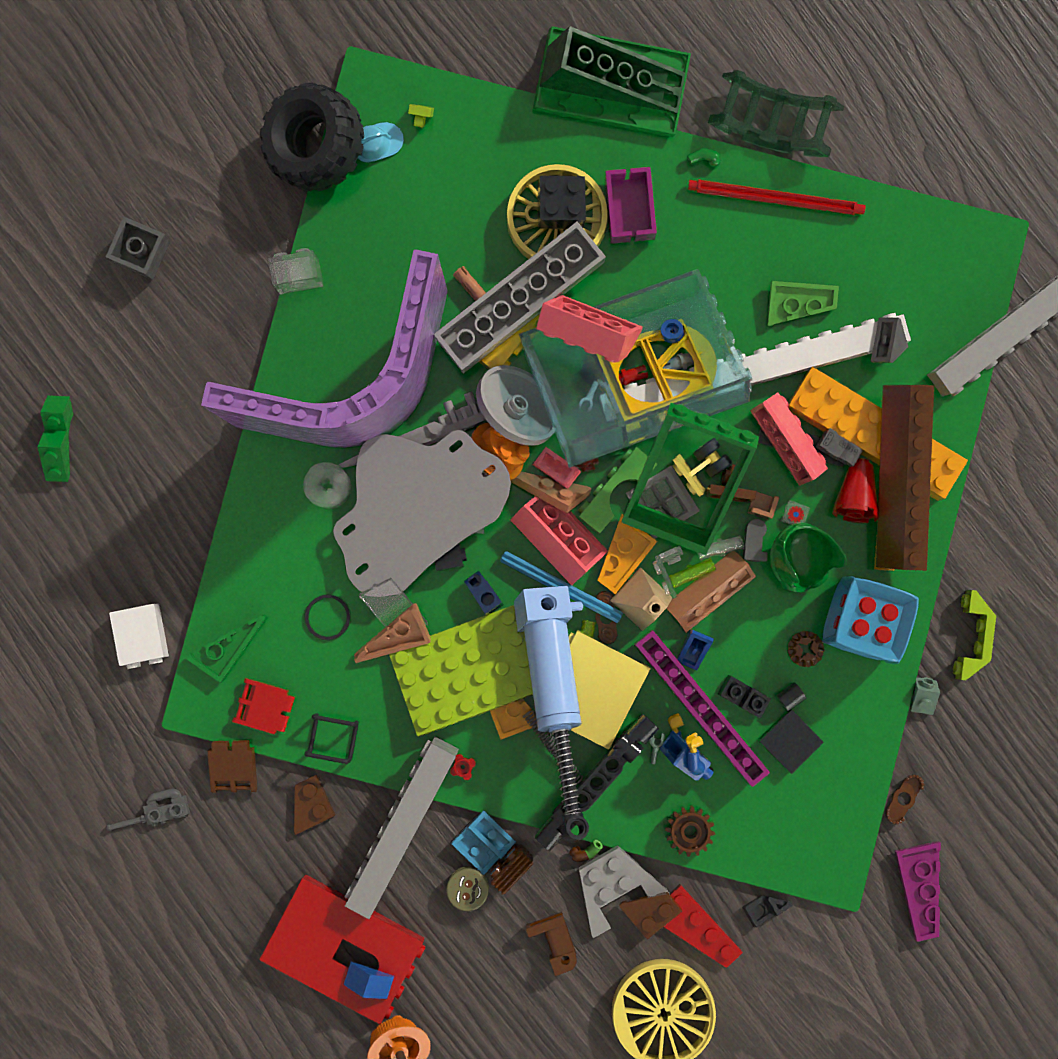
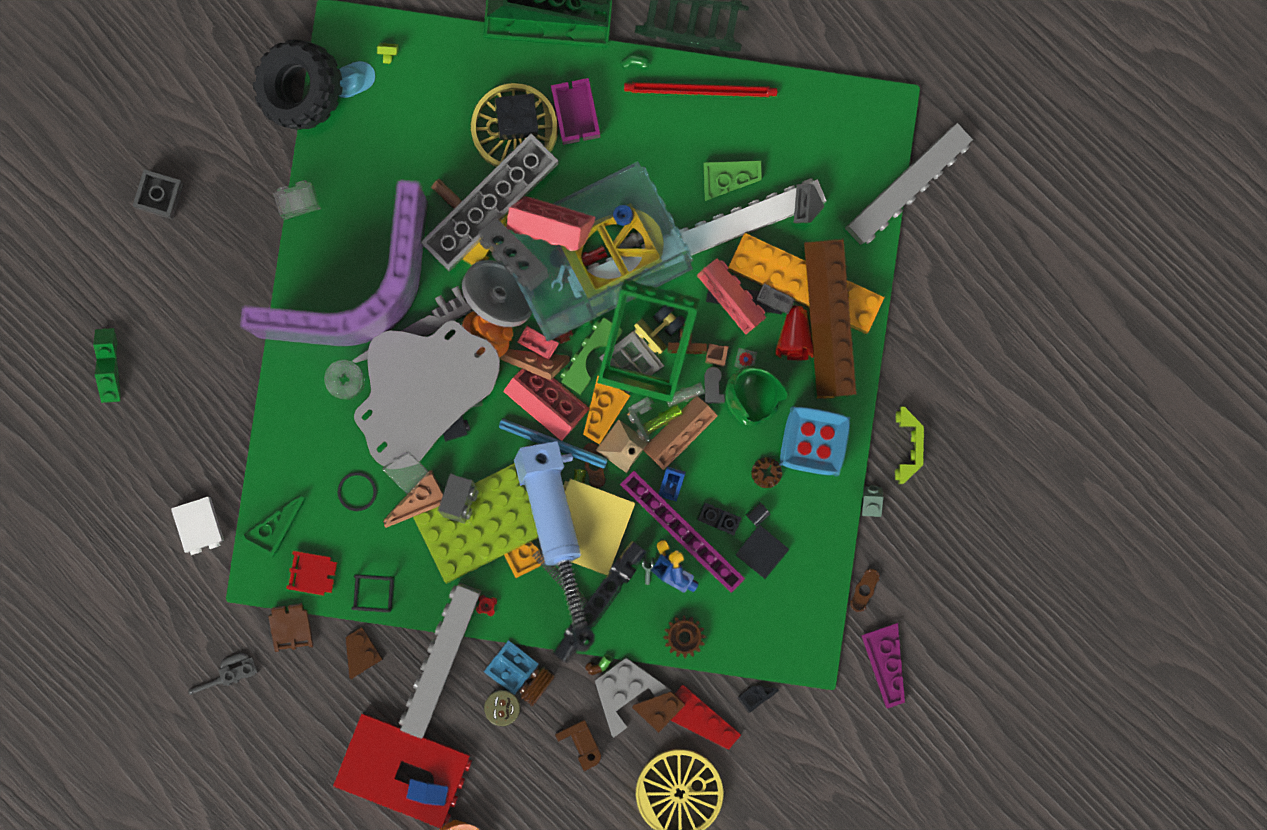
camera: 15 degrees left, 0 degrees up
(443, 640) = (458, 499): none -> dark grey brick
(483, 593) = (487, 456): dark blue leg -> none
(525, 332) = (497, 232): none -> dark grey brick

